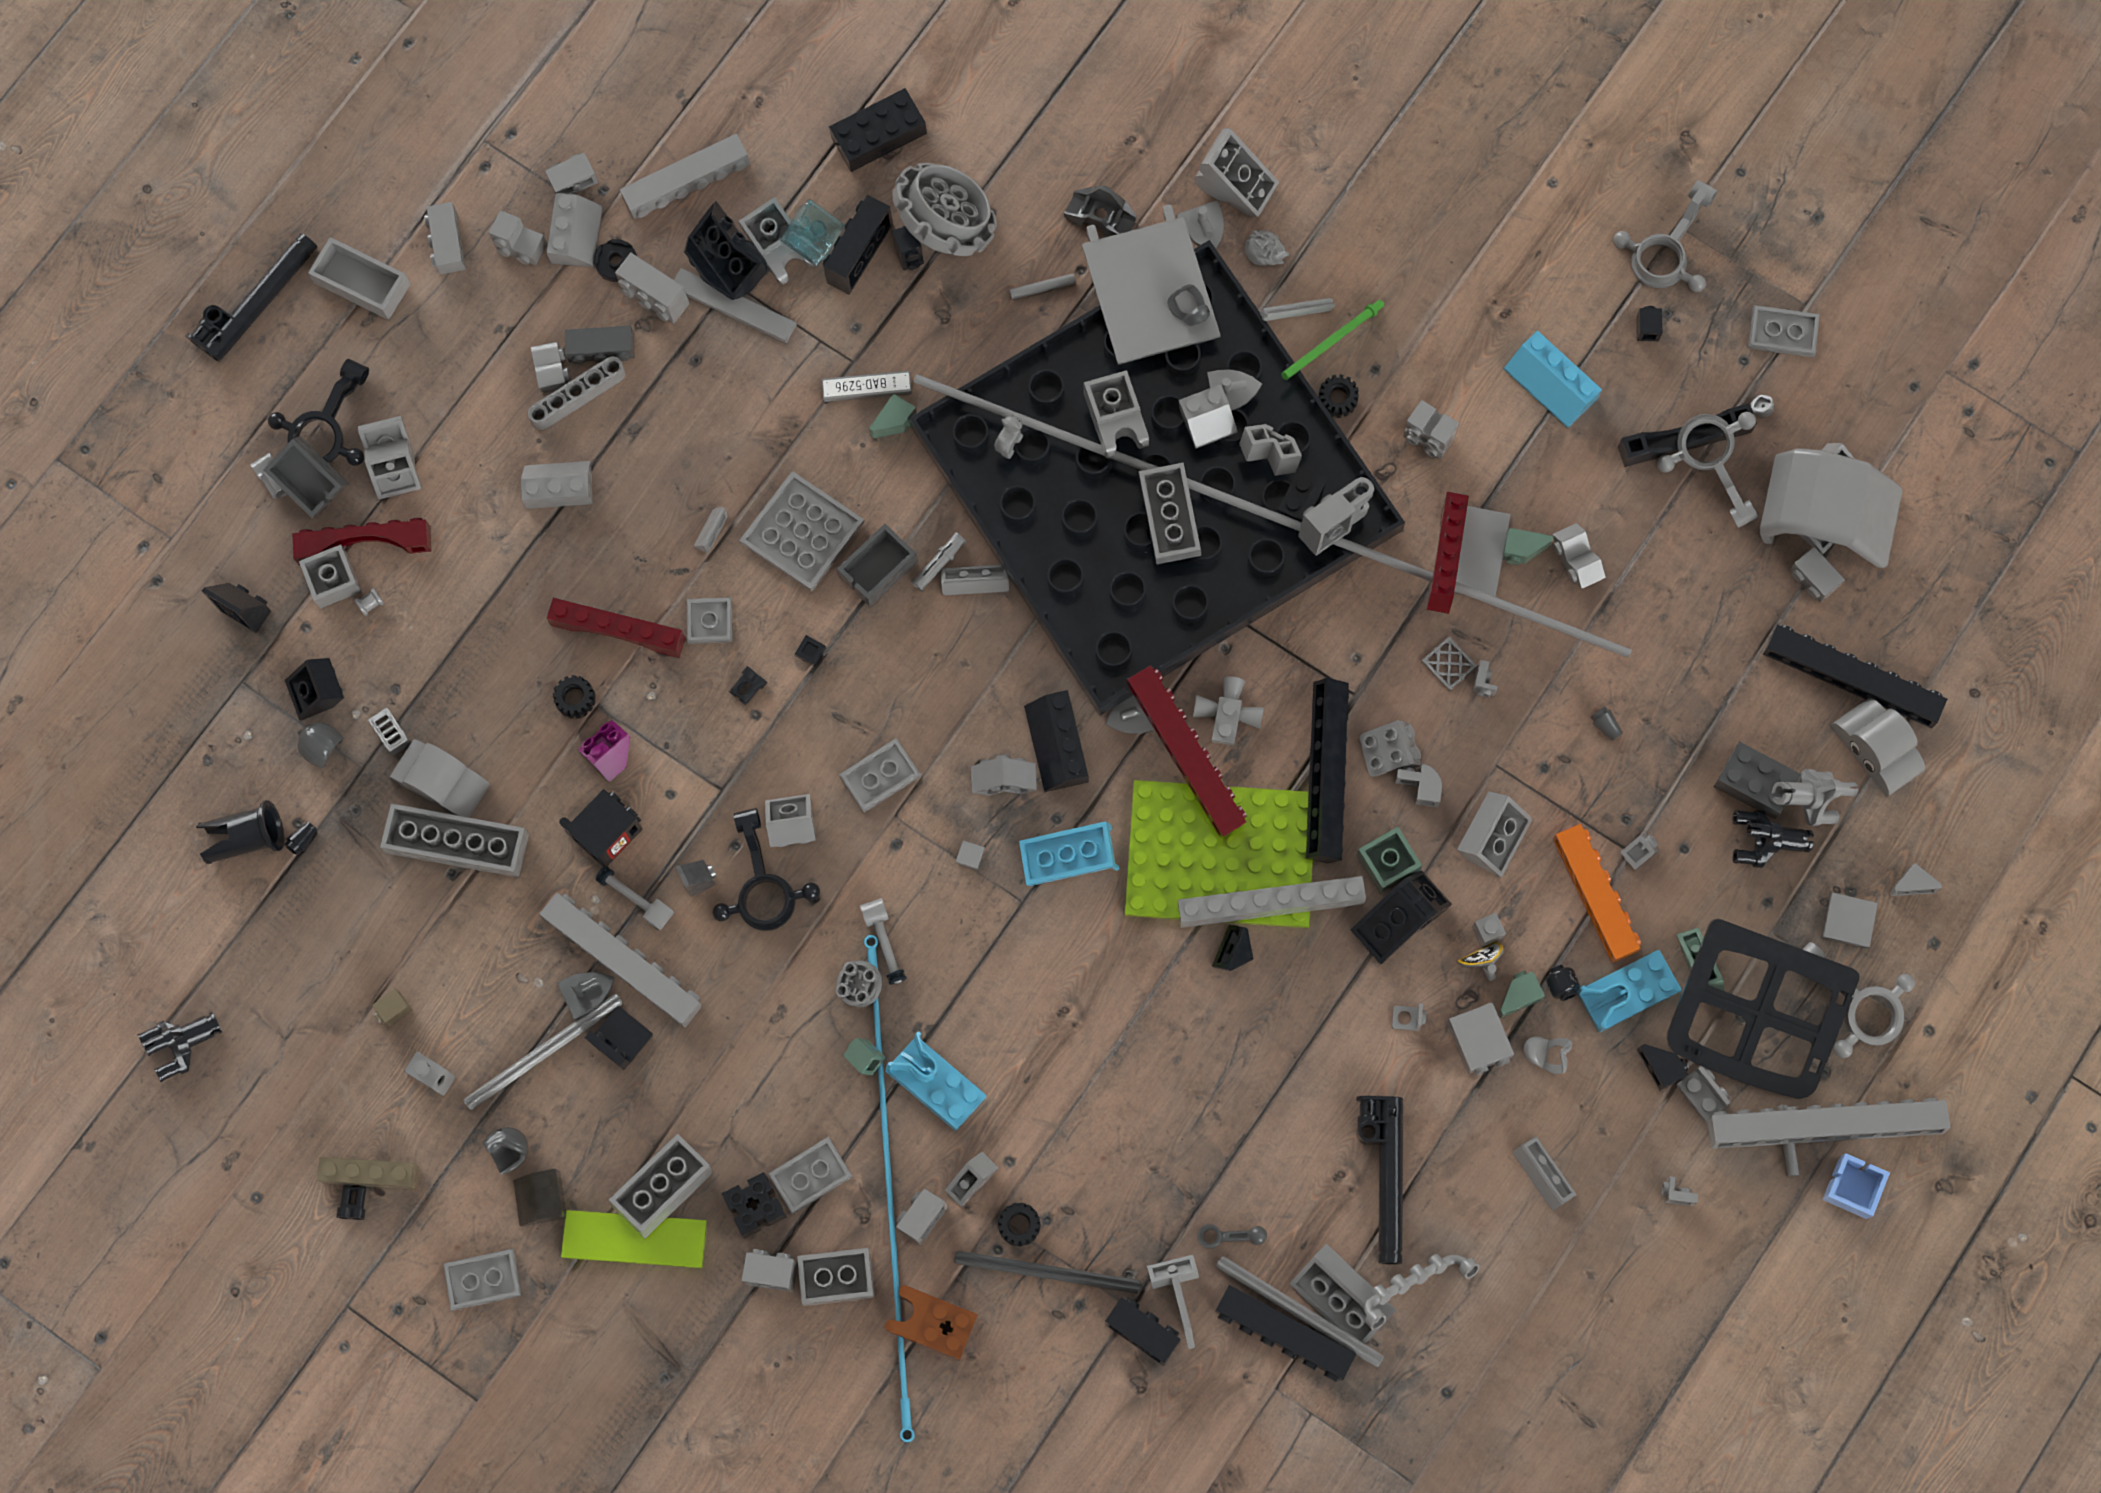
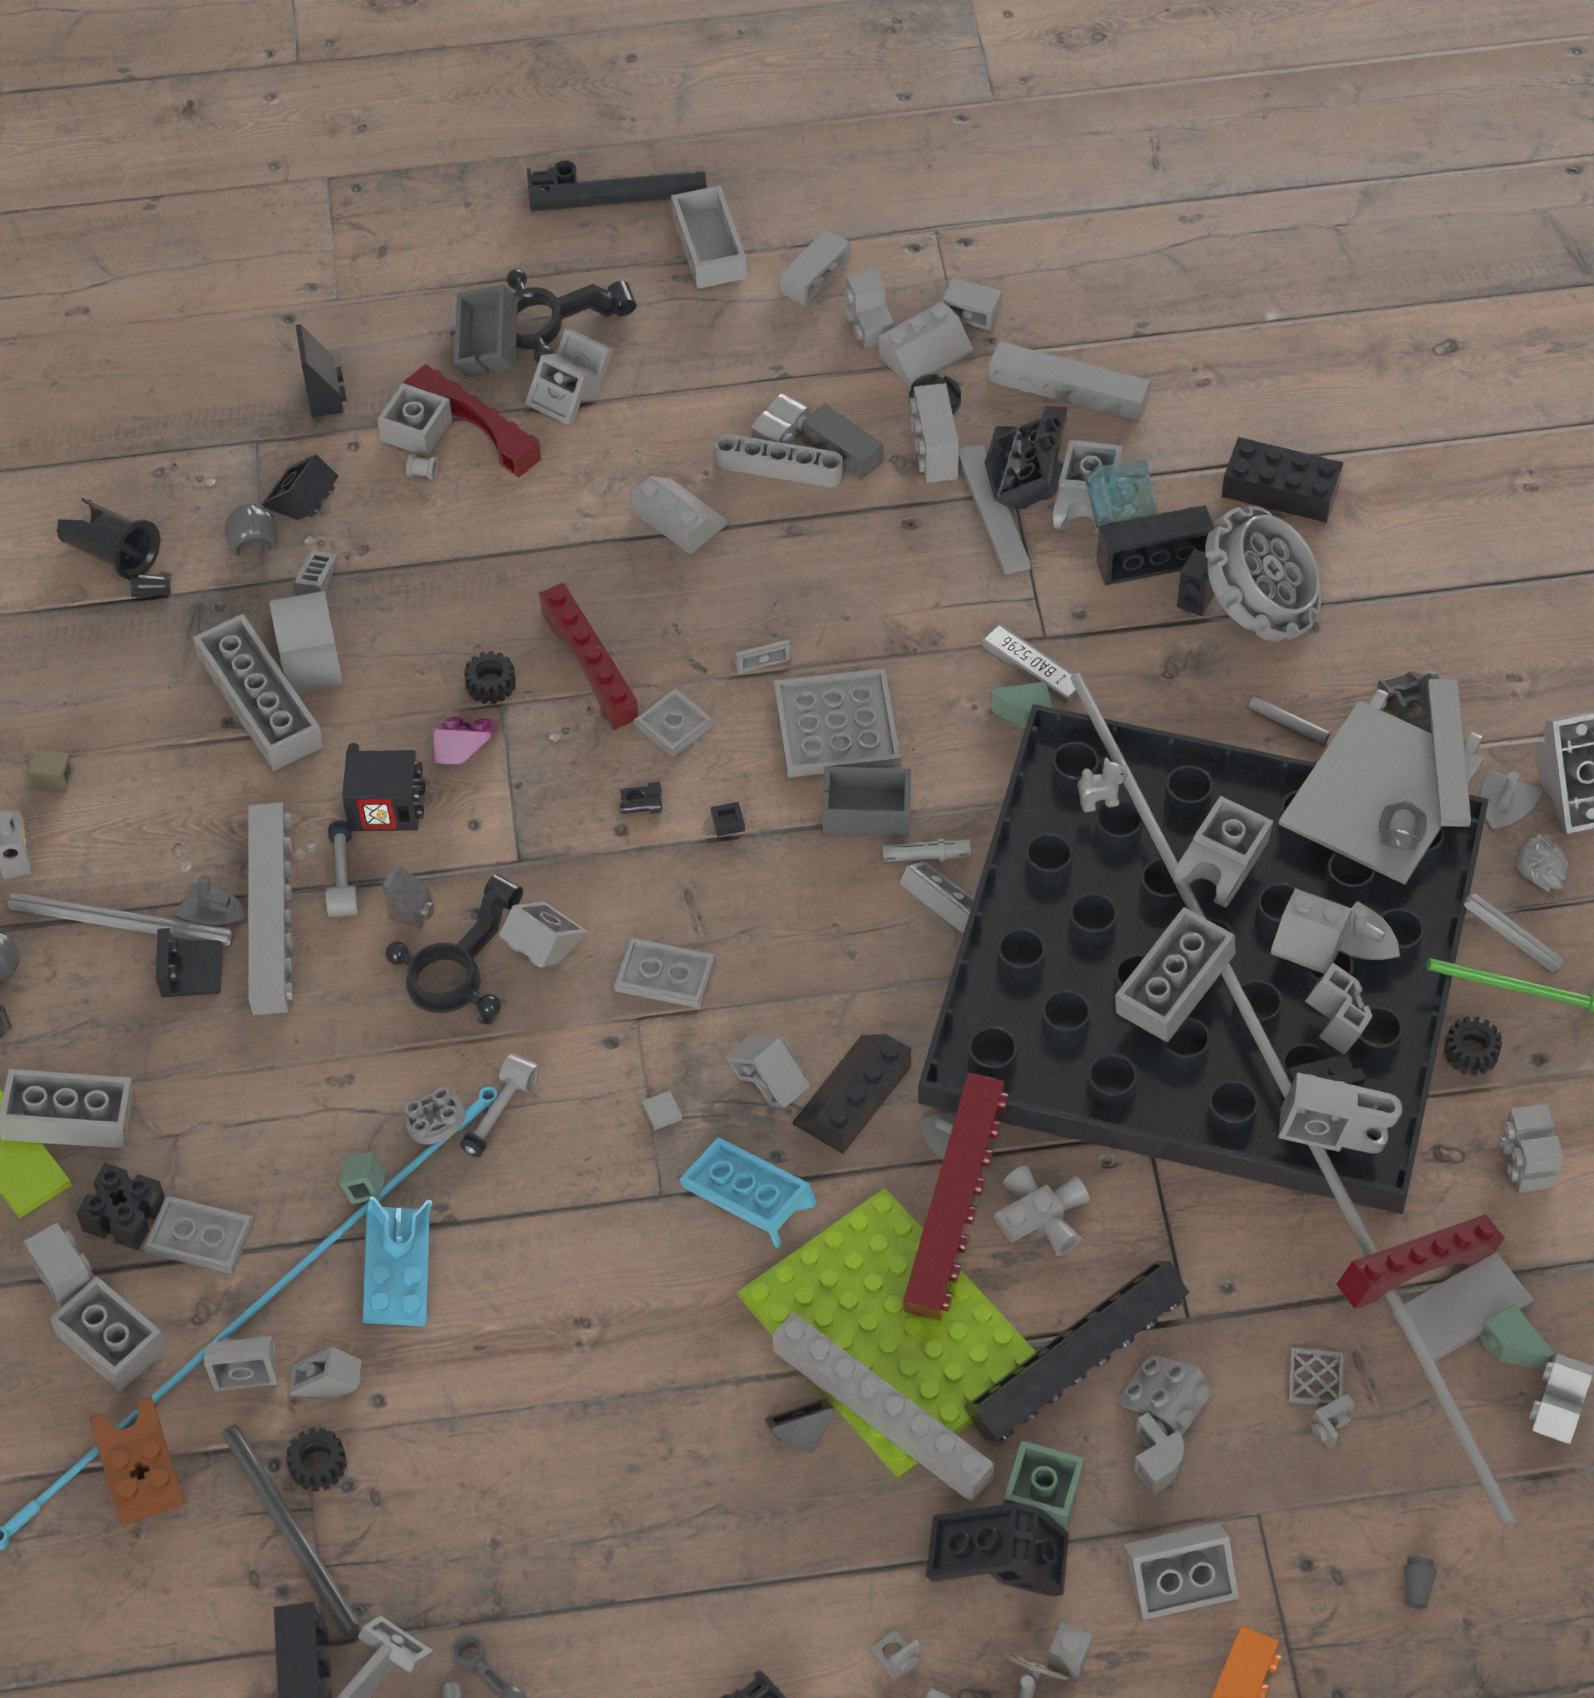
camera: 45 degrees right, 20 degrees down
(1164, 232) = (1448, 753): none -> light grey tile

